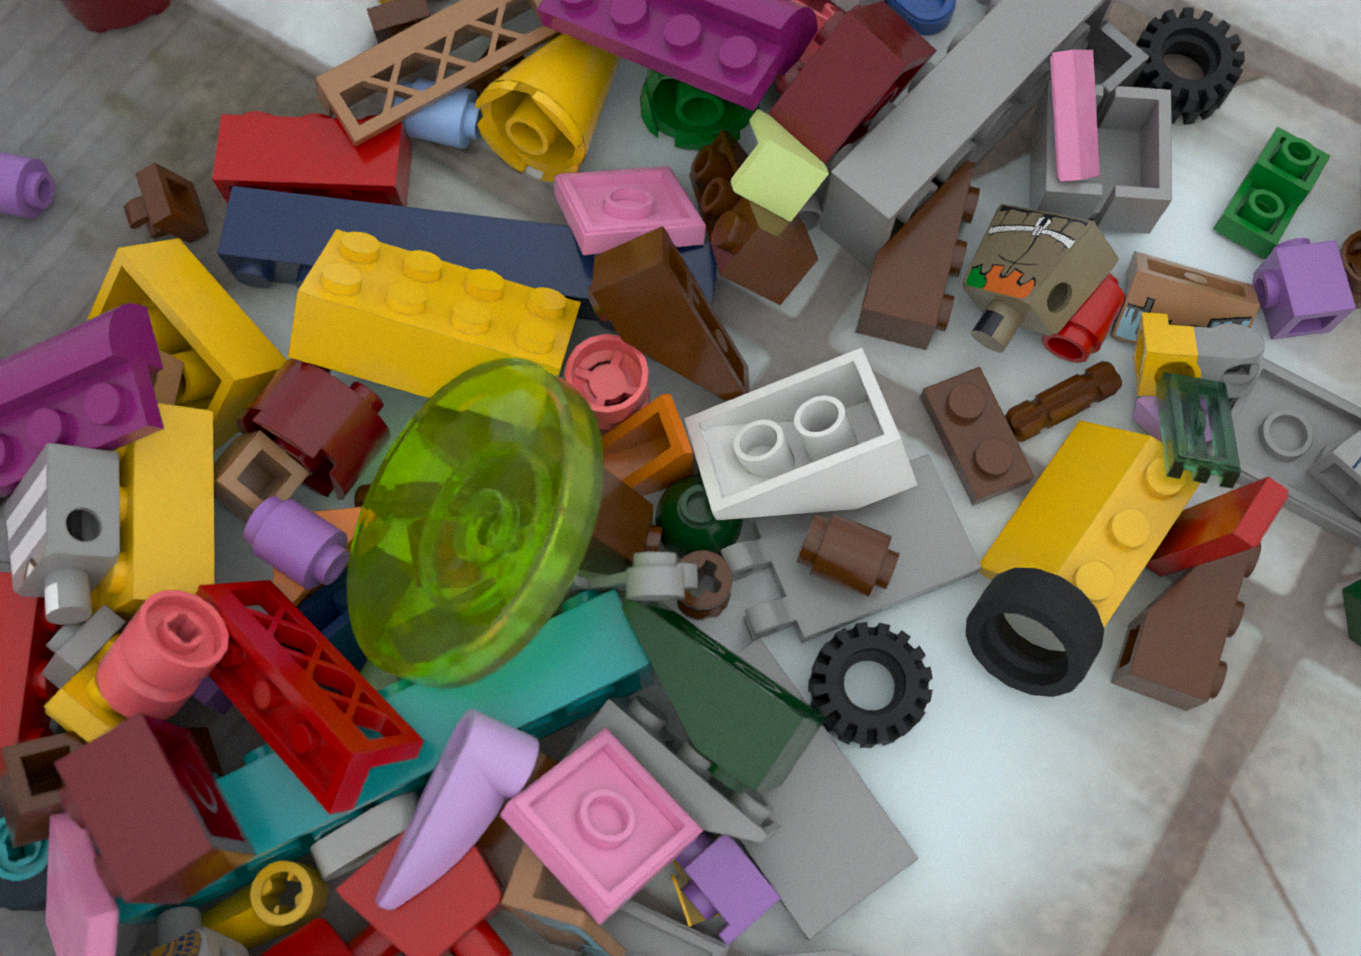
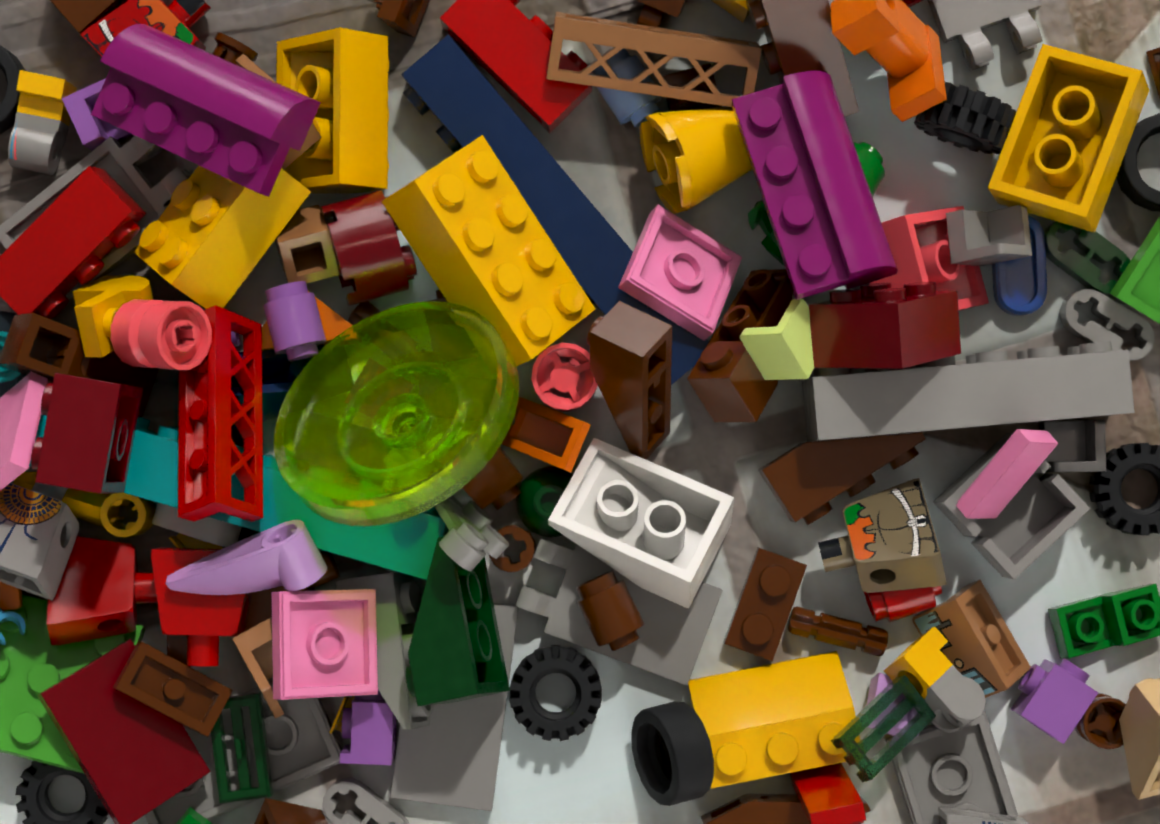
camera: 40 degrees right, 15 degrees up
(64, 528) = (164, 204): light grey torso -> none
(78, 644) = (122, 274): light grey plate -> none

